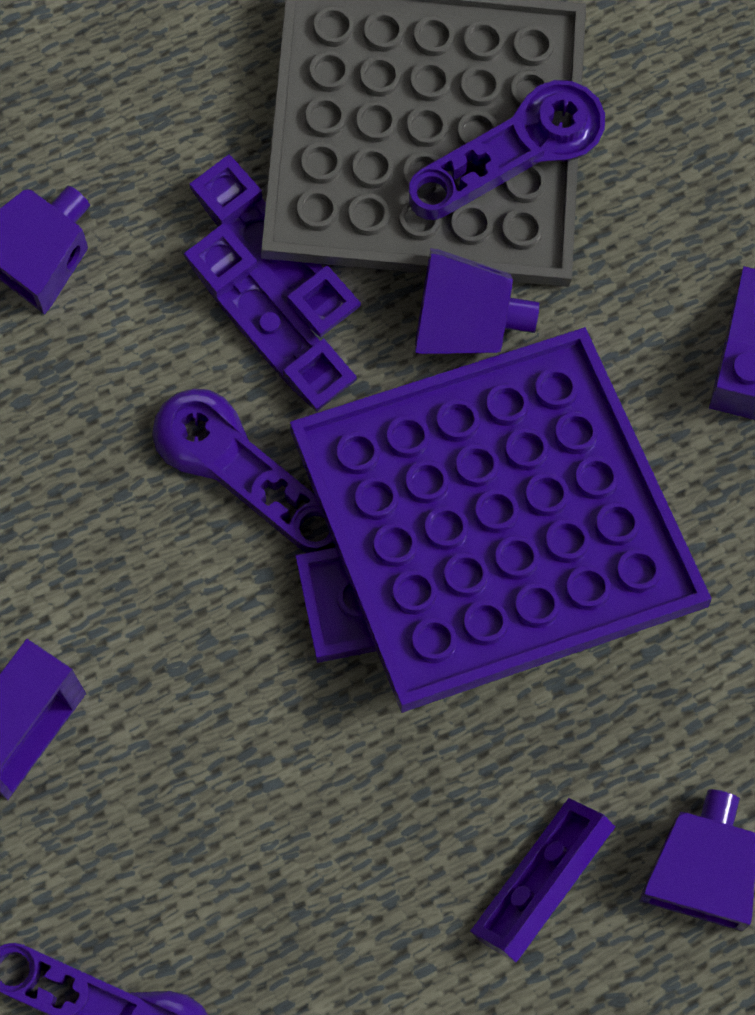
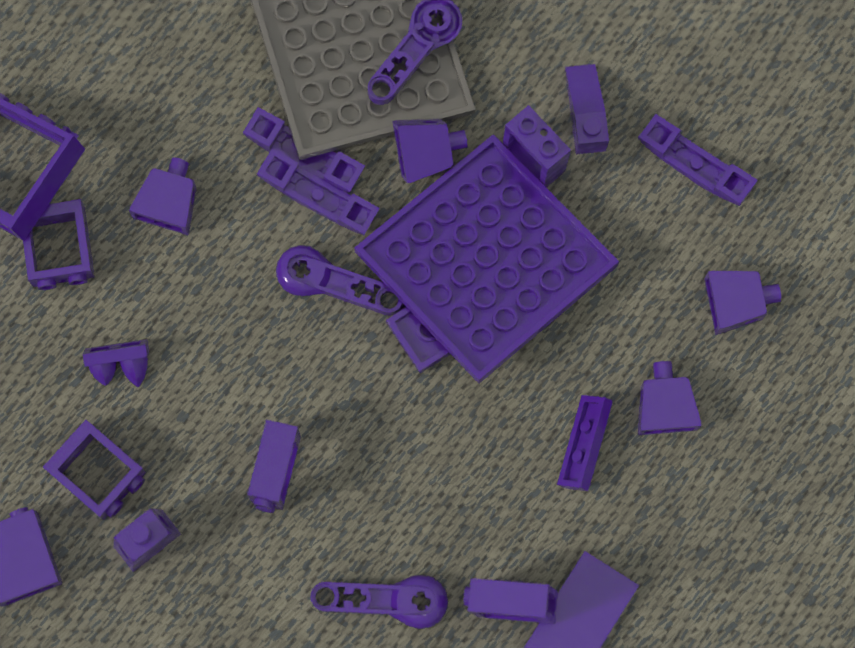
camera: 25 degrees left, 5 degrees up
(648, 379) = (542, 155): none -> dark purple window

